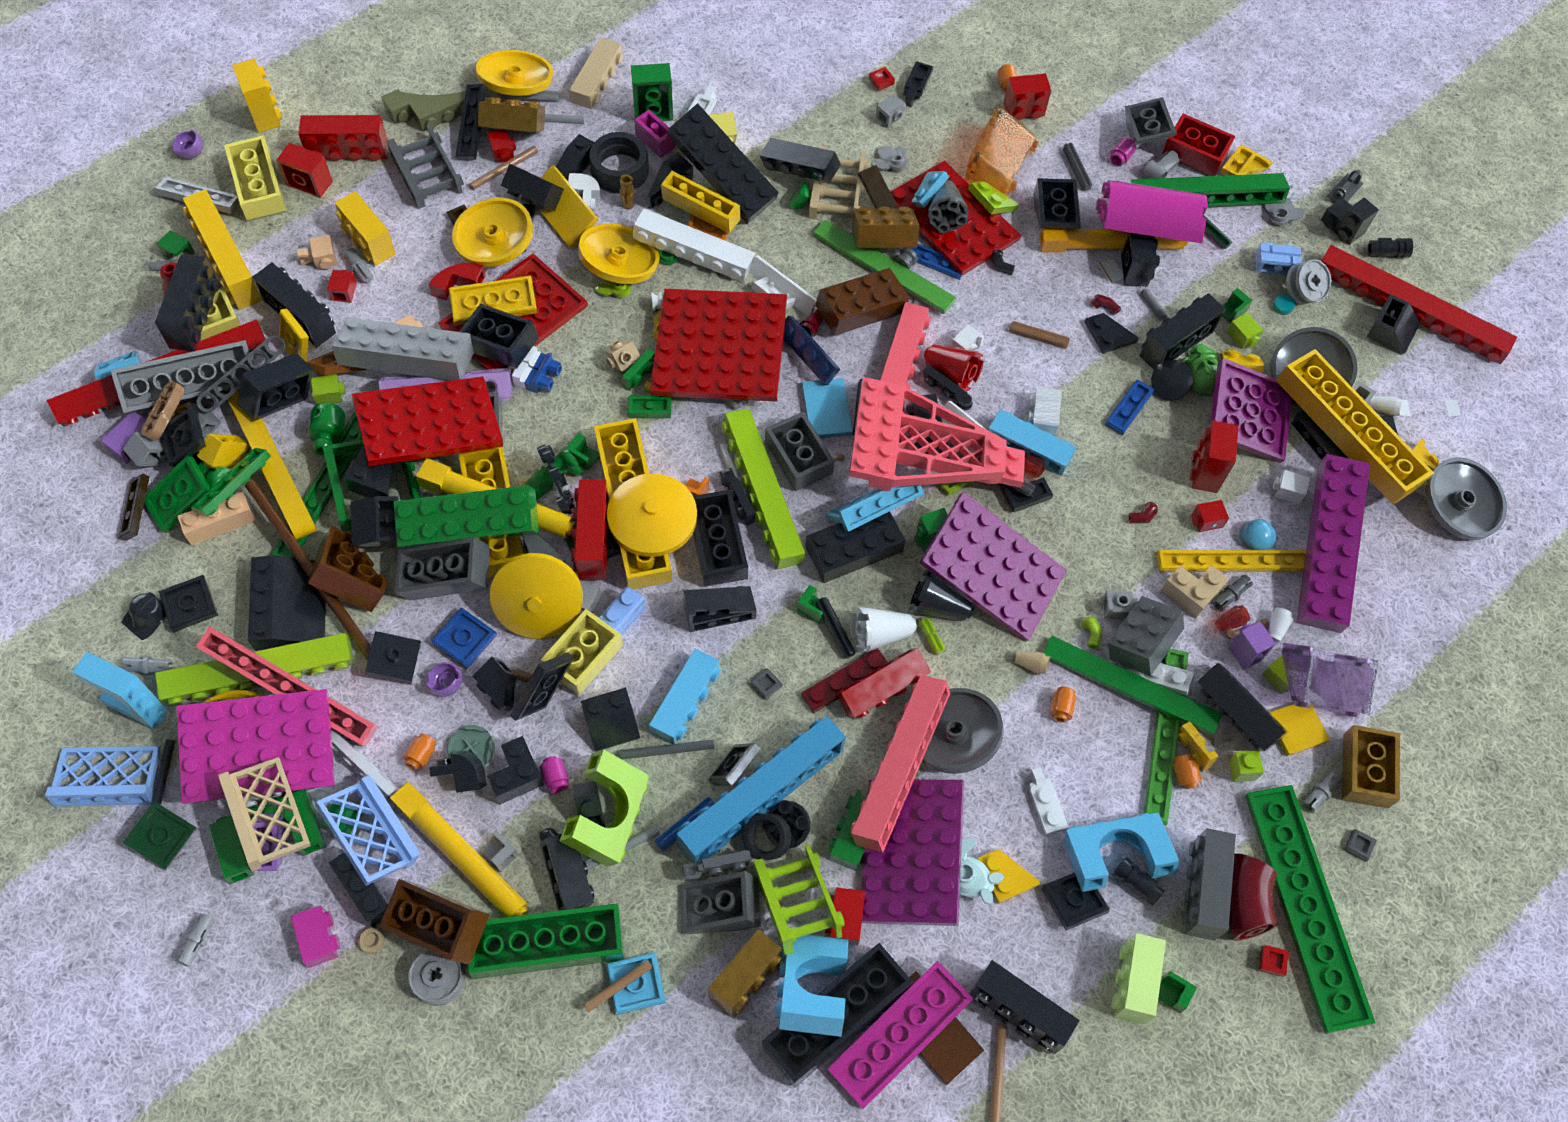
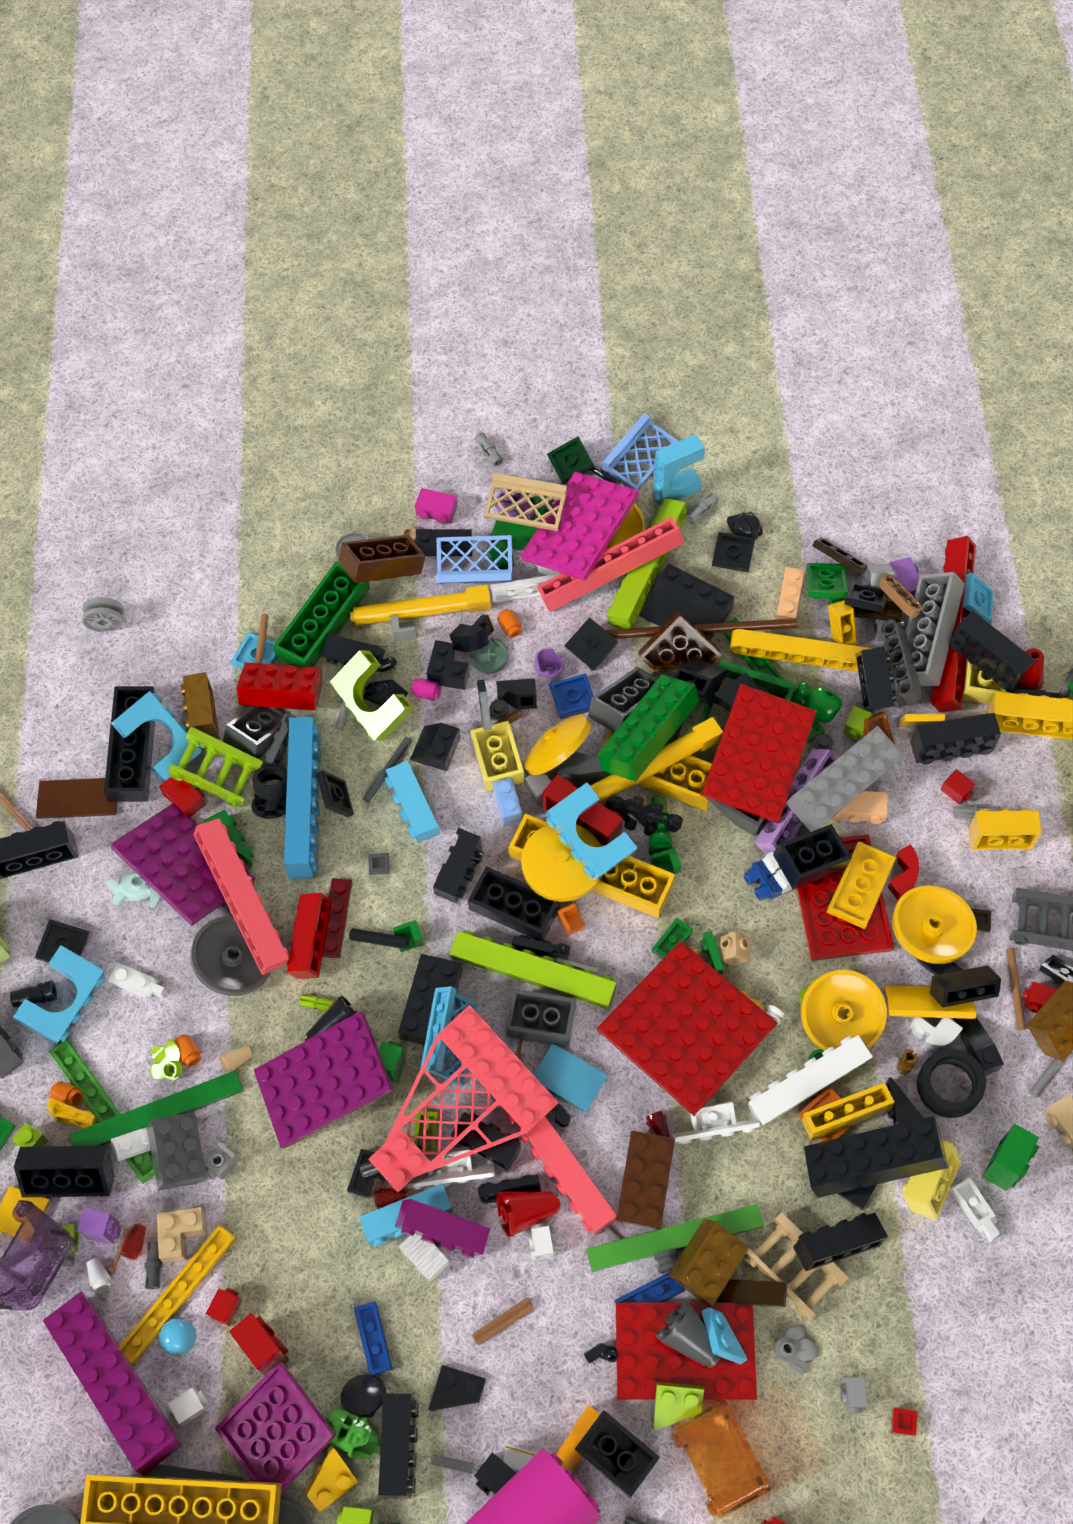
camera: 135 degrees right, 0 degrees up
(227, 480) = (807, 609): green plate -> none
(321, 252) = (1005, 790): light nougat brick -> none
(615, 515) = (594, 859): none -> medium azure arch
(653, 133) = (968, 1136): dark pink brick -> none
(659, 915) = (279, 686): none -> red brick
(670, 835) = (327, 745): blue axle -> none
(800, 197) = (805, 1220): green slope -> none
(809, 351) = (631, 1098): dark blue plate -> none
(880, 627) = (348, 966): white cone -> none
(900, 1034) = (86, 773): dark pink plate -> none
(917, 82) = (876, 1457): black hinge -> none
(1015, 879) = (117, 916): yellow wing -> none
(1022, 400) = (442, 1227): none -> magenta brick
(1087, 712) = (164, 1060): none -> plate
(1096, 632) = (219, 1127): lime arm -> none
(1108, 302) = (489, 1417): dark red arm -> none
(1146, 514) = (270, 1257): dark red arm -> none

